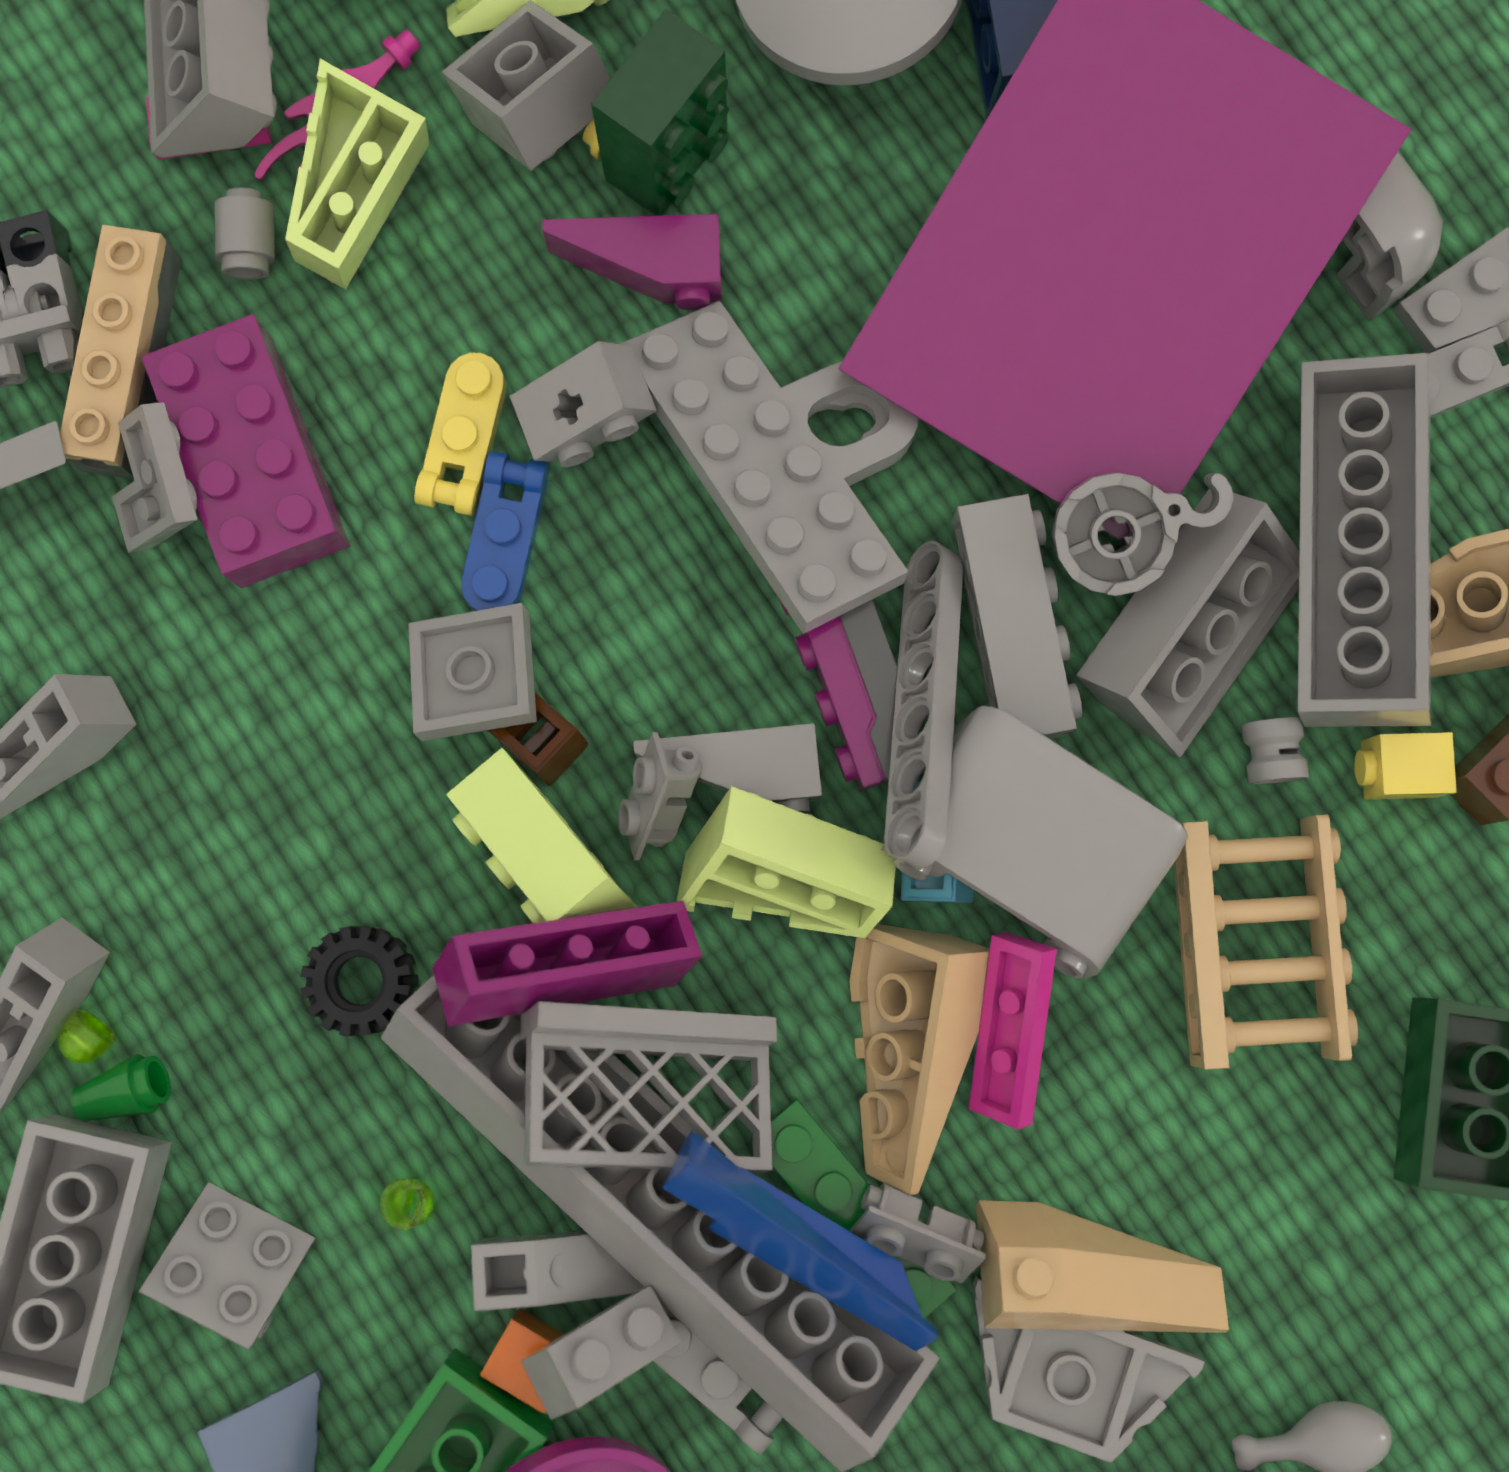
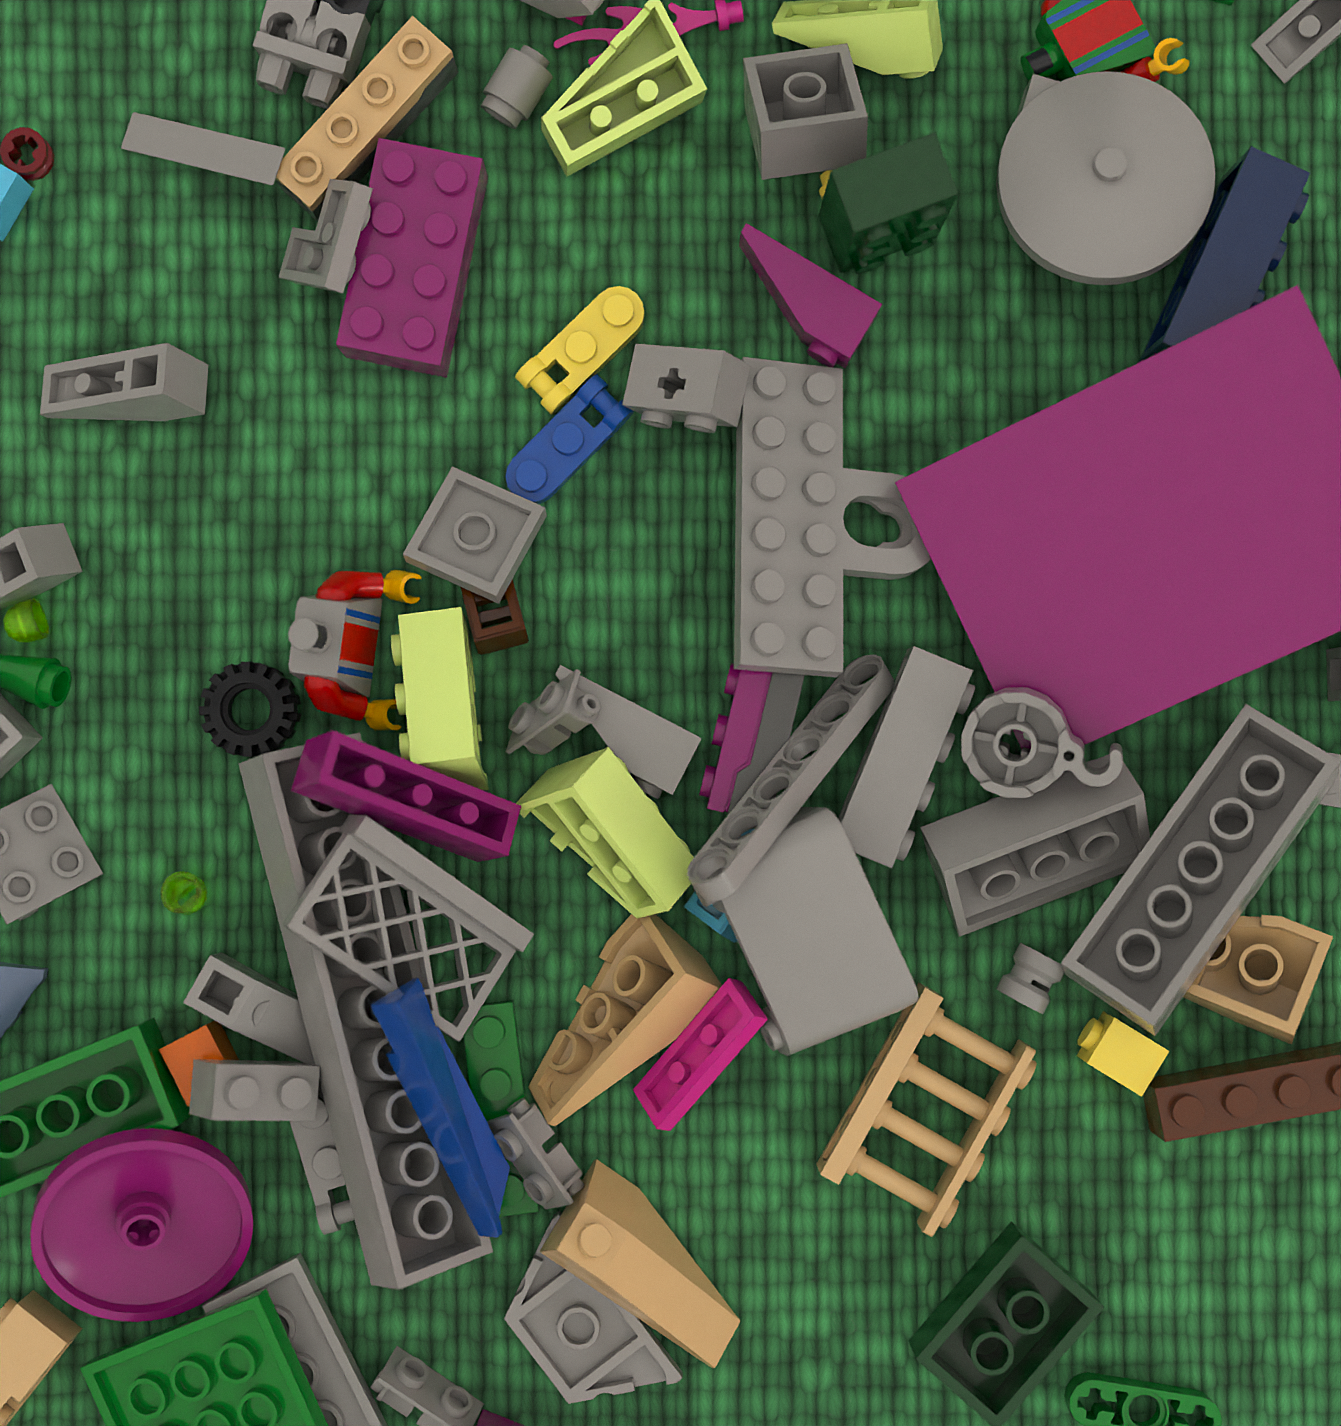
camera: 30 degrees right, 5 degrees up
(404, 860) = (337, 642): none -> torso

